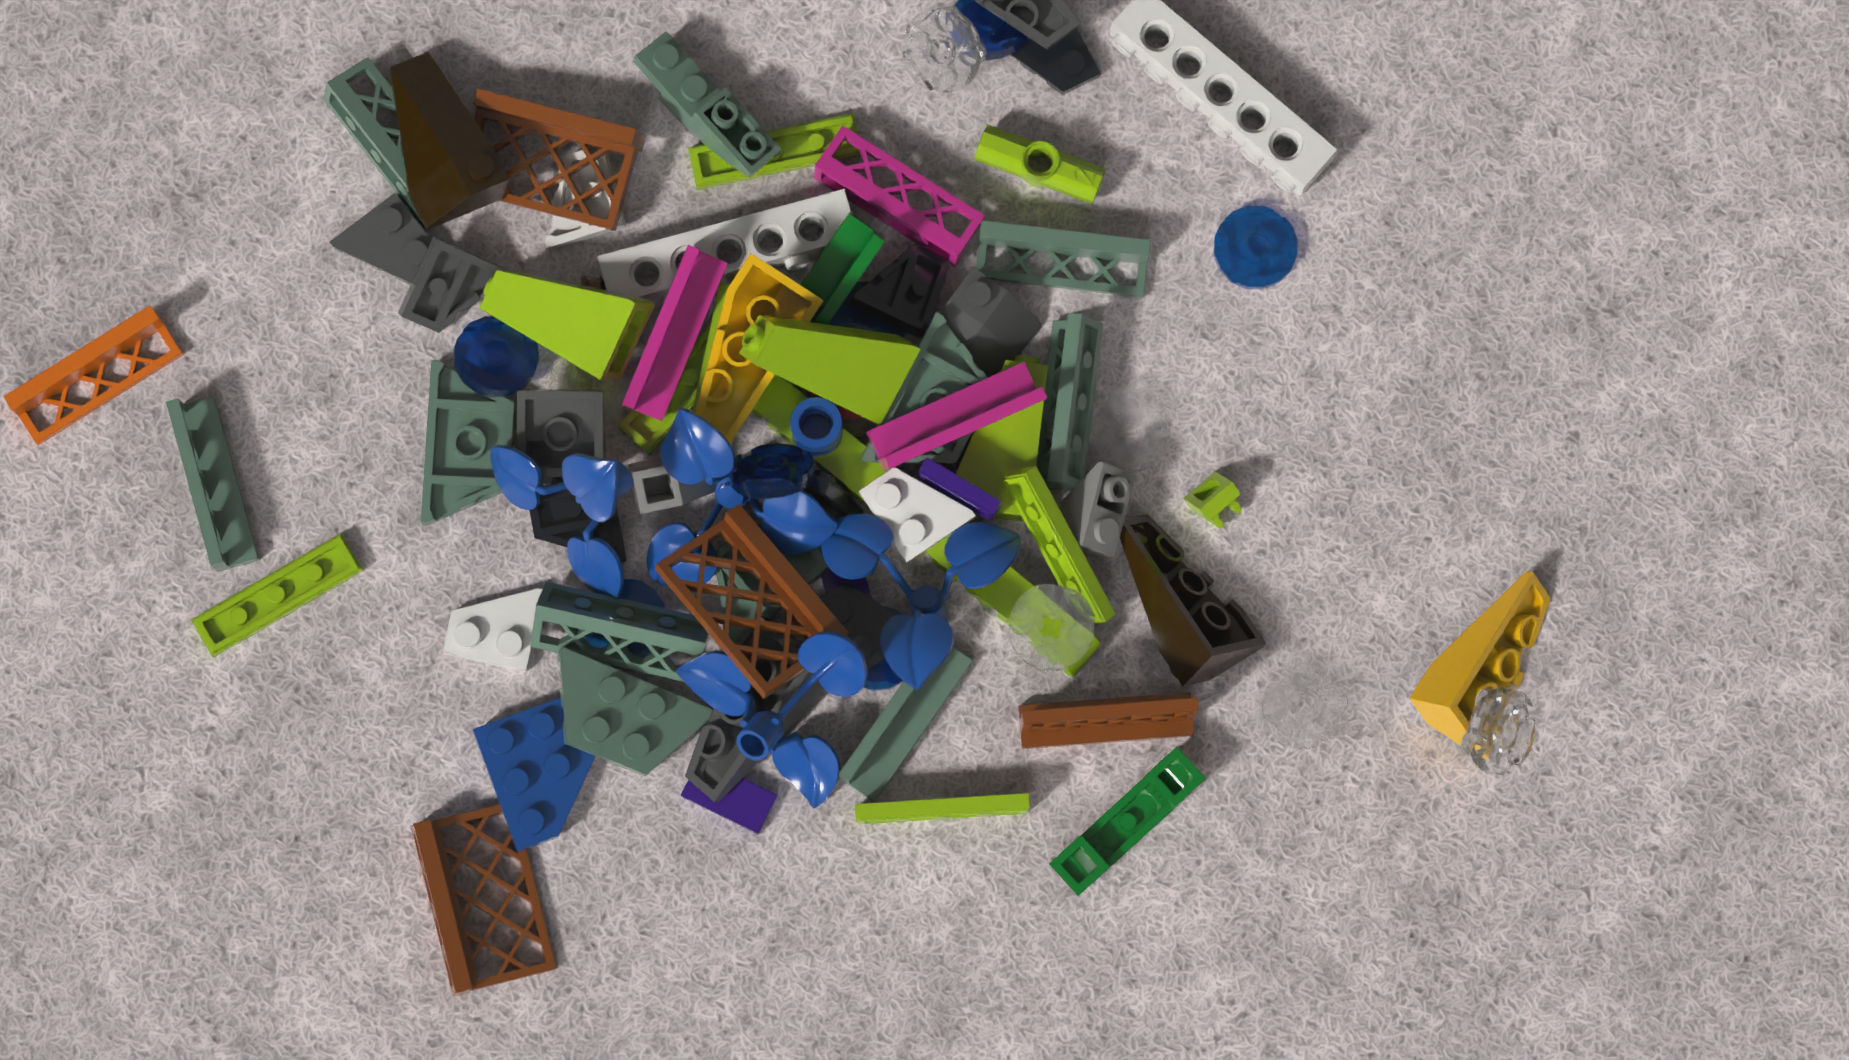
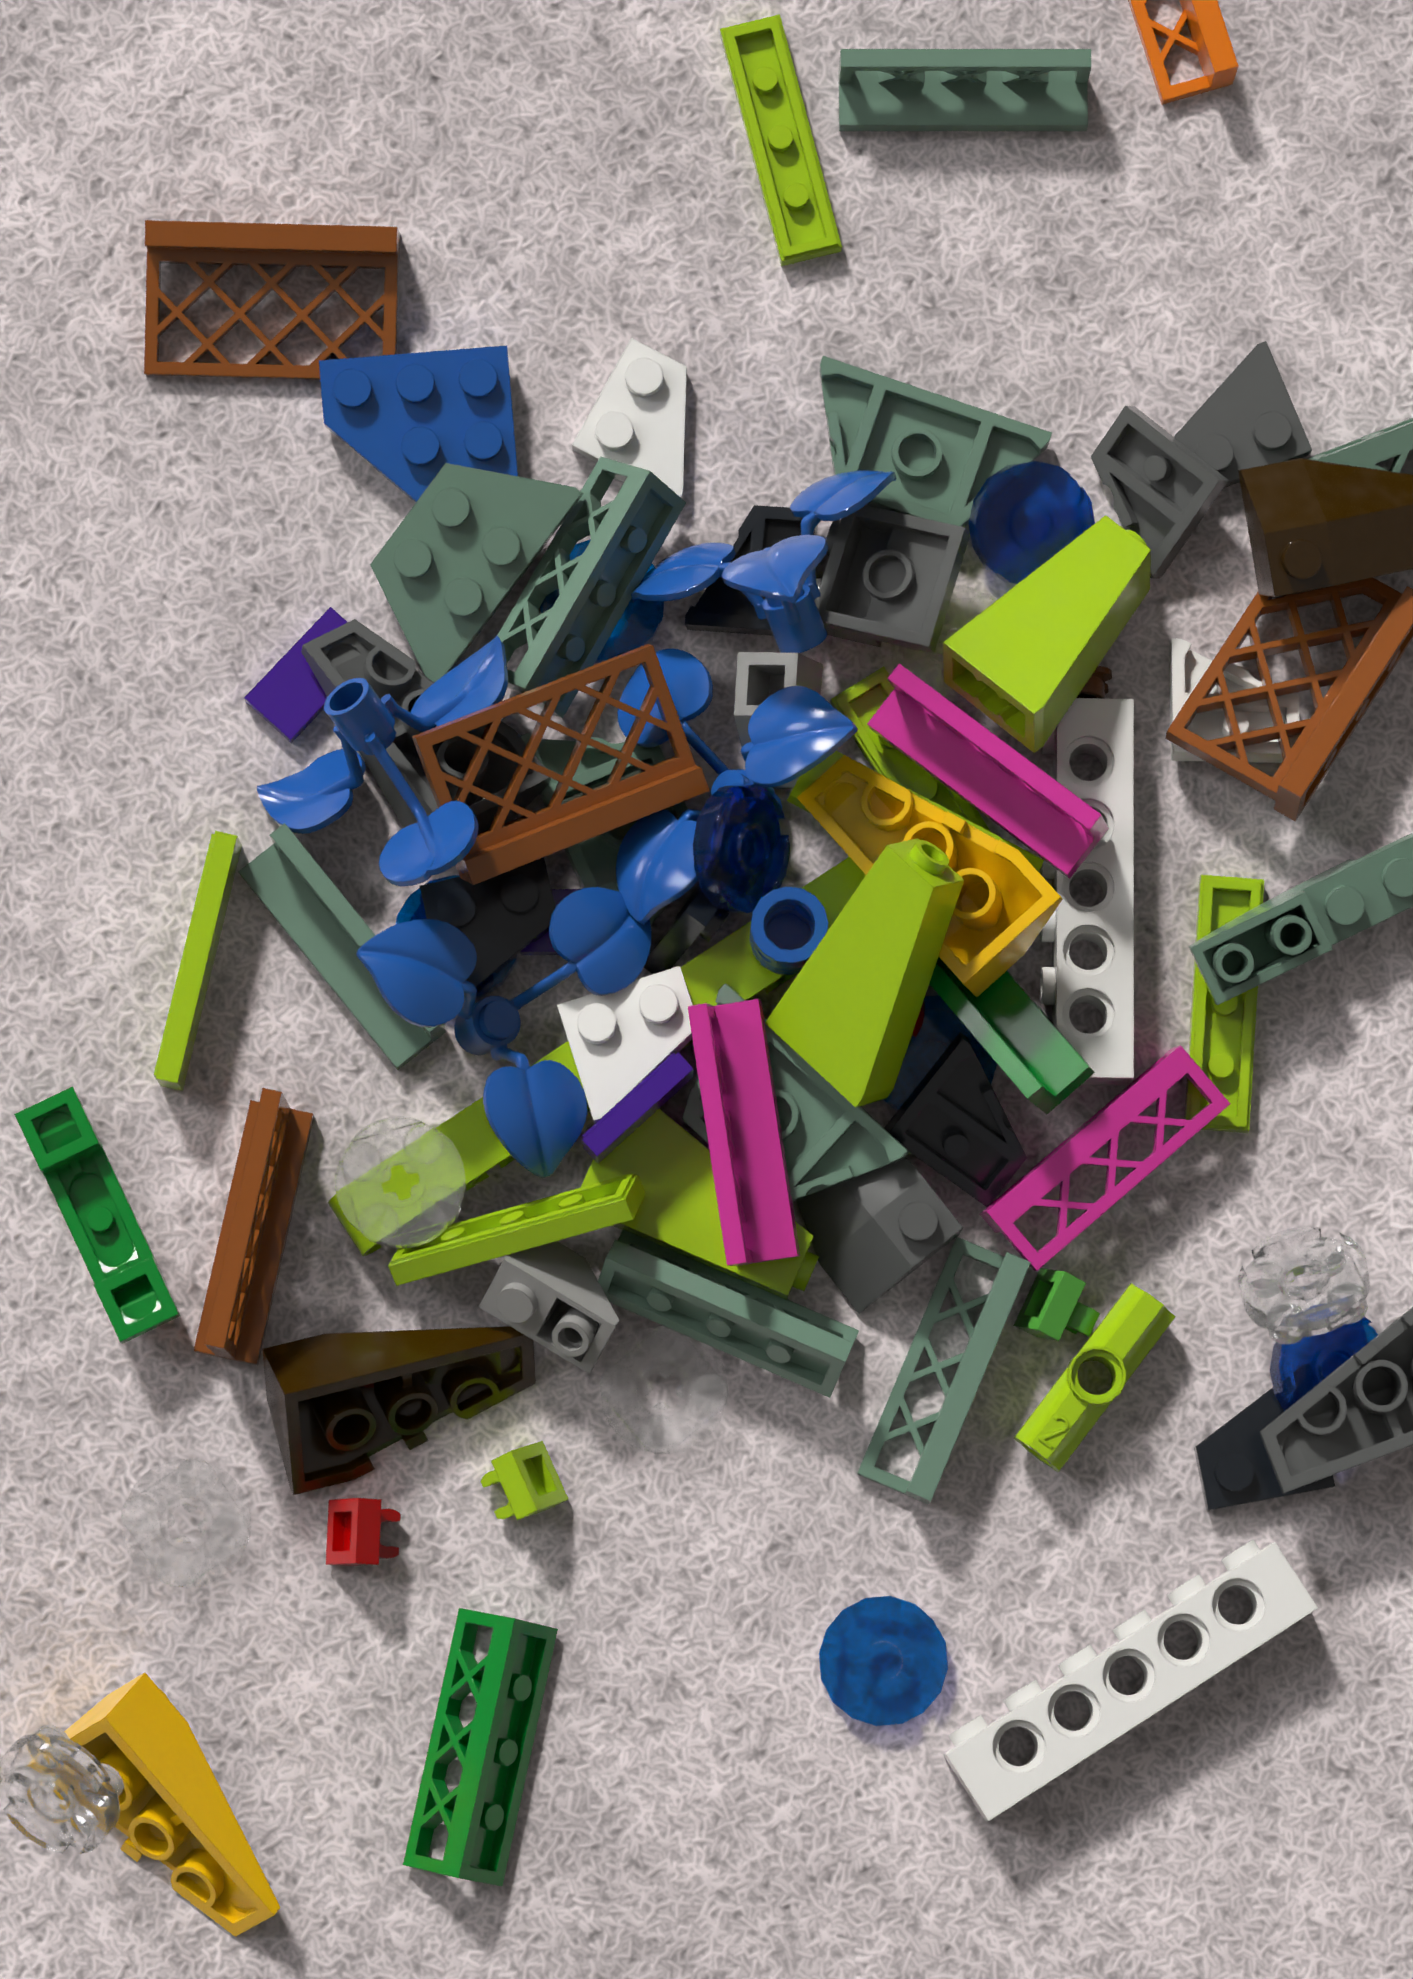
camera: 105 degrees right, 0 degrees up
(1002, 201) = (1054, 1307): none -> bright green tile
(1278, 595) = (355, 1532): none -> red tile
(1387, 466) = (490, 1748): none -> green fence

